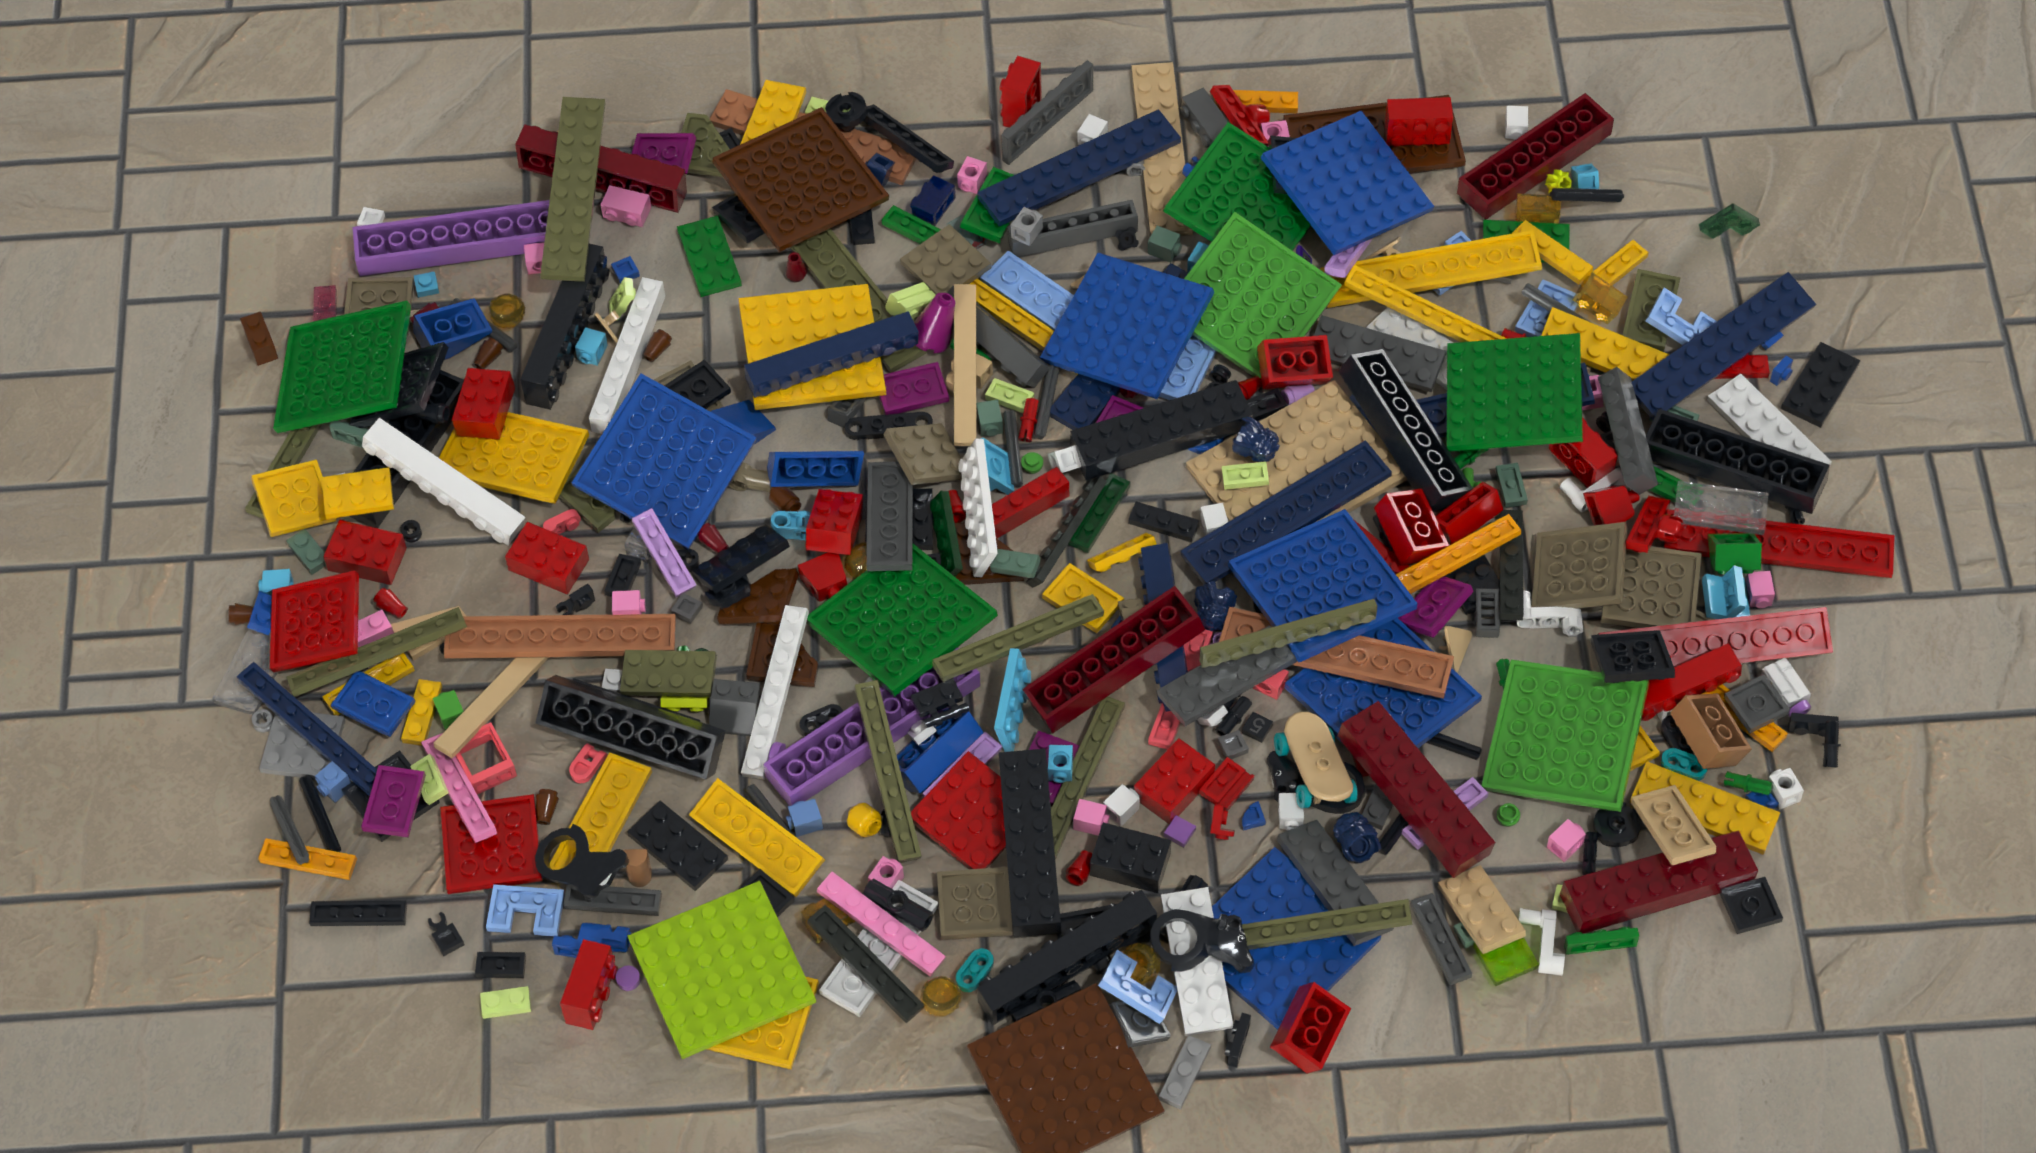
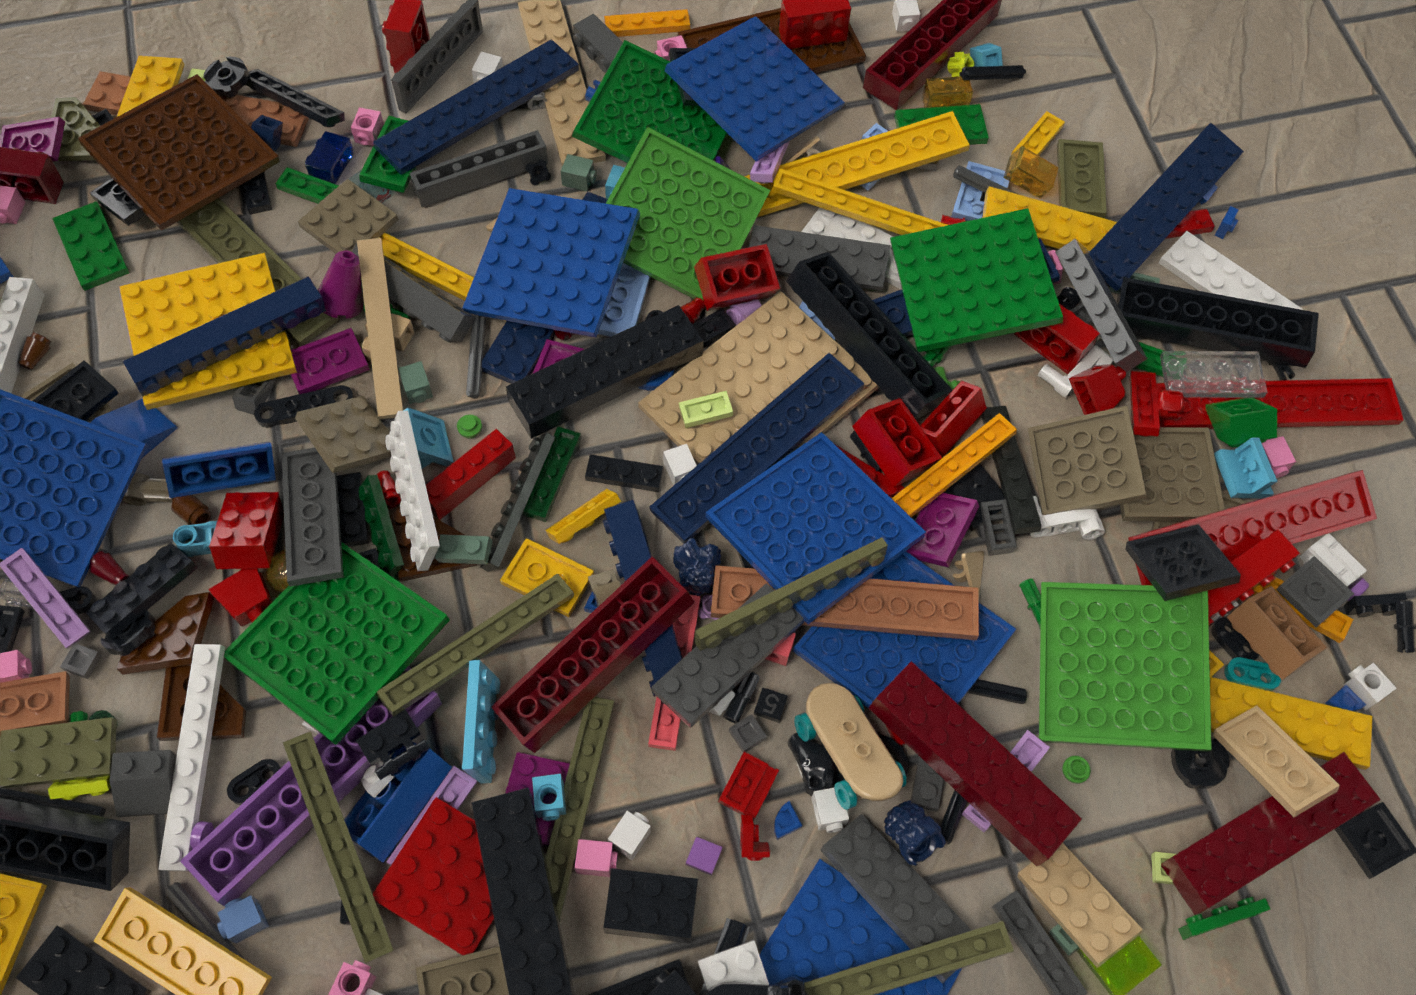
camera: 15 degrees left, 5 degrees up
(795, 268) = (185, 246): dark red cone -> none
(864, 820) = (317, 910): yellow head -> none
(910, 299) = (312, 264): yellowish green brick -> none
(1008, 395) = (435, 354): yellowish green plate -> none
(1013, 448) = (446, 413): dark grey axle -> none
(1026, 226) = (429, 169): light grey brick -> none
(1028, 289) = (441, 237): light blue plate -> none
(1028, 419) = (459, 378): red axle -> none
(1065, 459) = (504, 418): white brick -> none
(1079, 870) = (591, 932): red cone -> none
(1174, 781) = (687, 793): red brick -> none
(1220, 374) = (658, 301): black bush -> none
(1245, 117) = (642, 36): red plate -> none
(1256, 441) = (711, 370): dark blue hair -> none
(1511, 485) = (988, 378): sand green plate -> none
(1549, 962) = (1155, 901): white beam -> none
(1558, 255) = (981, 136): yellow plate -> none
(1566, 840) = (1151, 792): bright pink brick -> none
(1590, 853) = (1179, 804): black axle -> none
(1664, 319) = (1101, 184): light blue plate -> none
(1727, 218) = (1141, 78): clear green plate -> none
(1748, 783) = (1329, 687): green axle -> none
(1820, 384) = (1265, 232): black plate -> none

